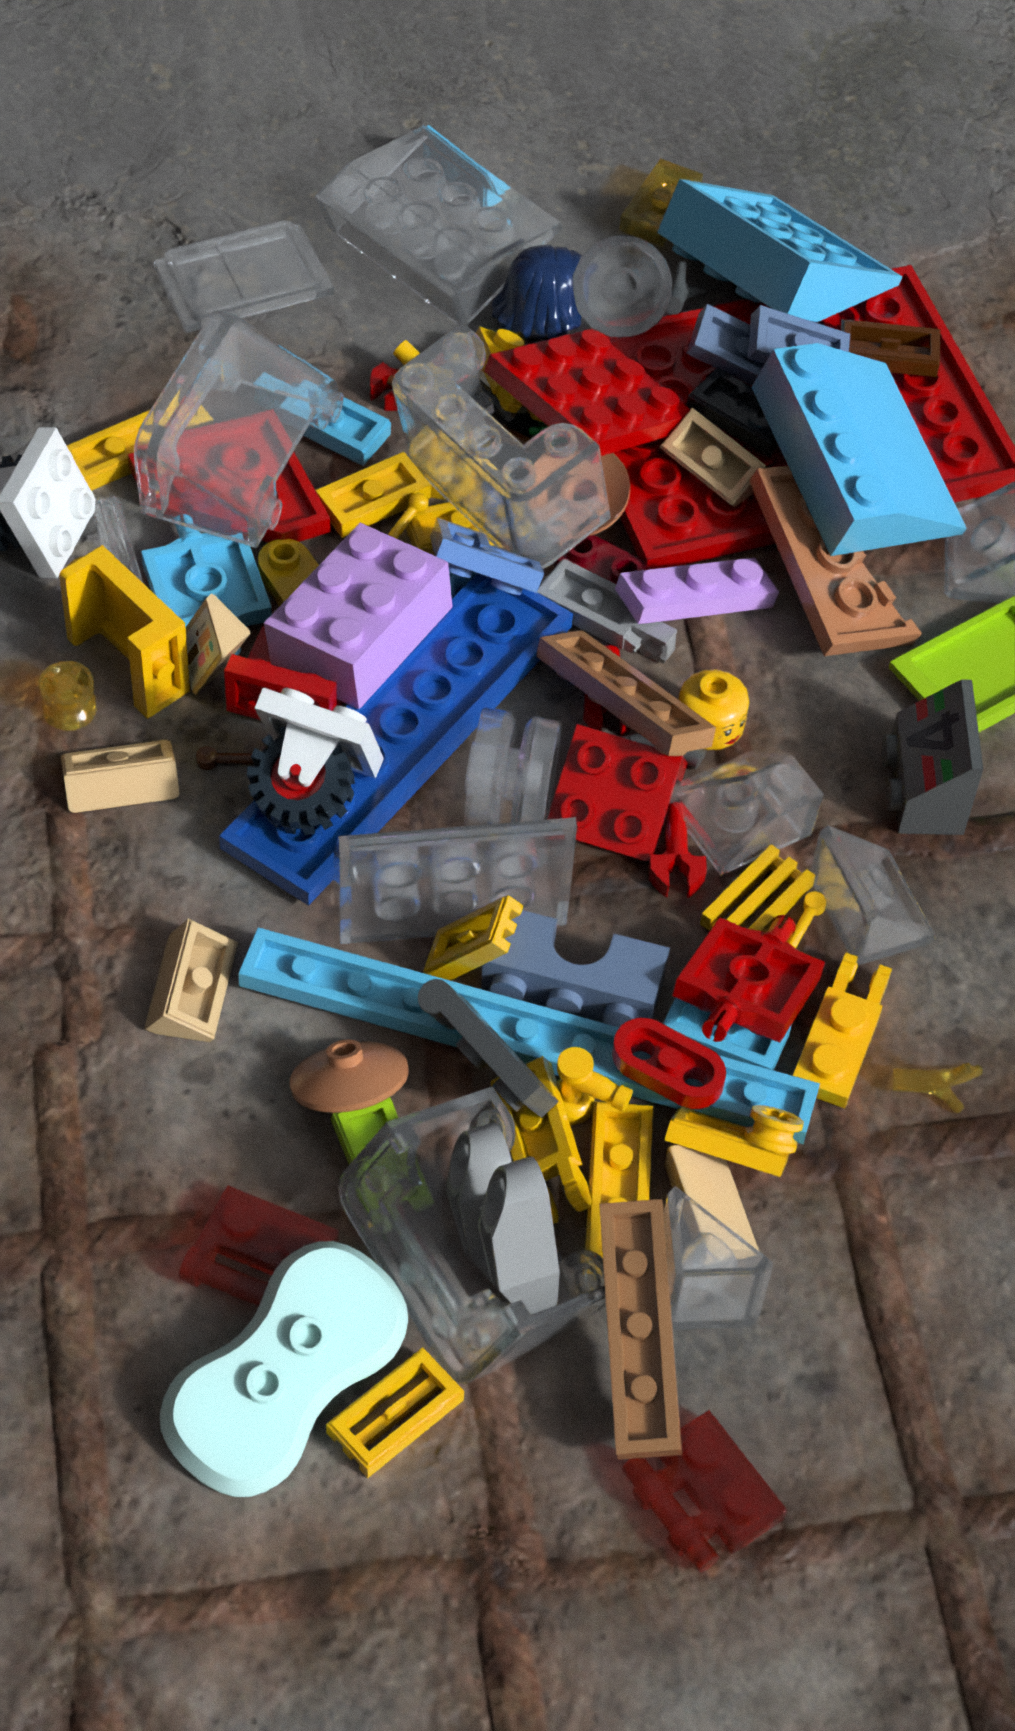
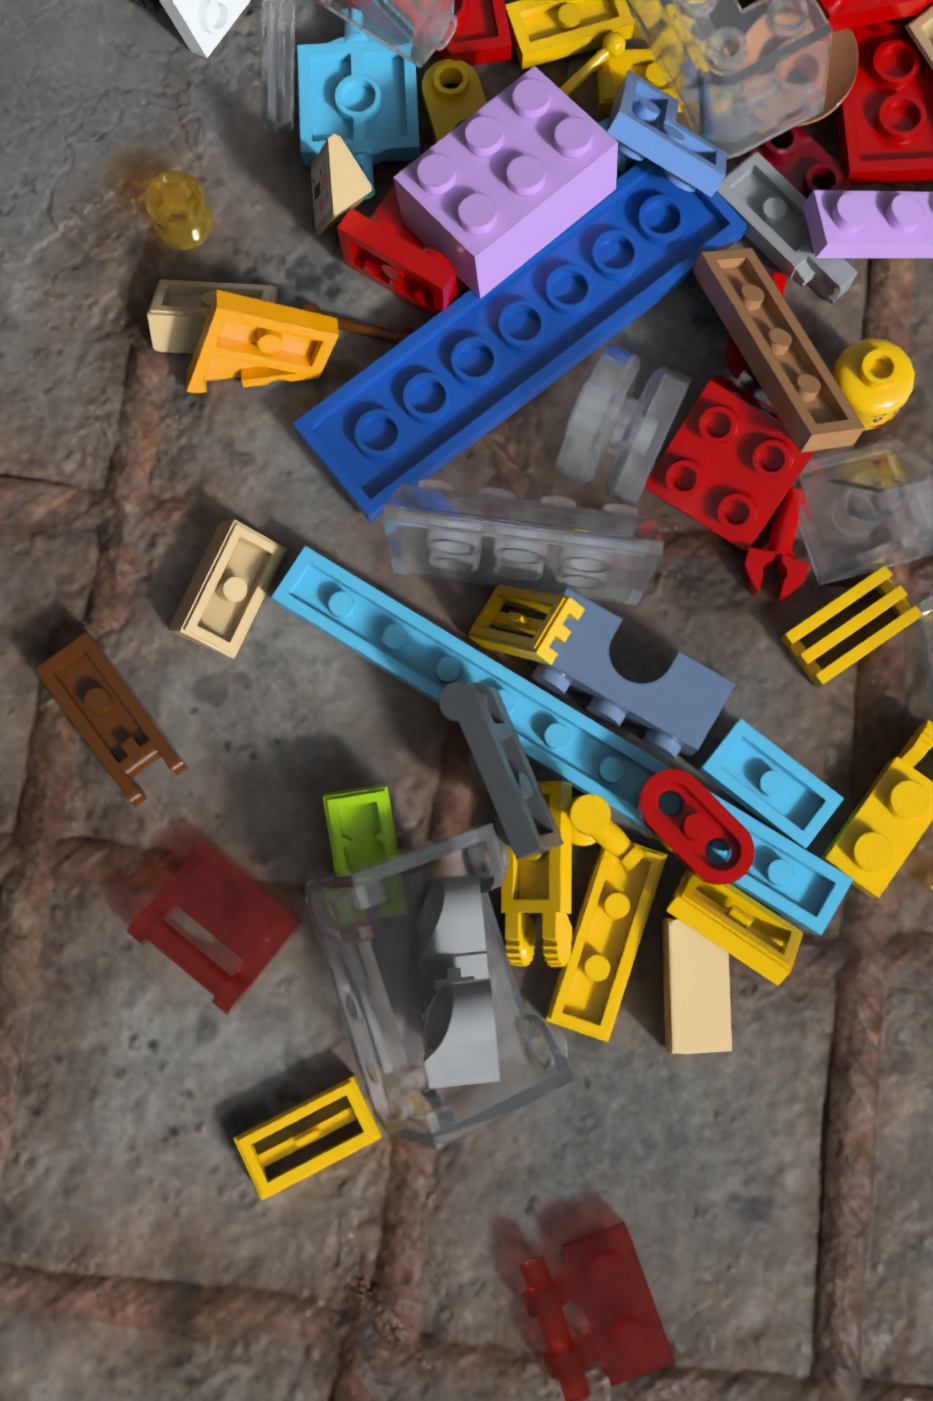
camera: 20 degrees right, 25 degrees up
(112, 601) = (229, 104): yellow panel -> none
(112, 1101) = (108, 714): none -> reddish brown hinge
(171, 778) = (259, 343): none -> light orange wing
(251, 1405) = (248, 1036): light aqua plate -> none
(308, 760) = (393, 374): plate -> none
(349, 1076) = (360, 764): nougat dish -> none
(640, 1330) = (574, 1144): medium nougat plate -> none
(712, 1270) = (657, 1089): clear slope -> none
(749, 979) = (812, 742): red plate -> none
(773, 1129) = (786, 933): yellow bush -> none
(814, 905) = (909, 646): yellow hinge -> none

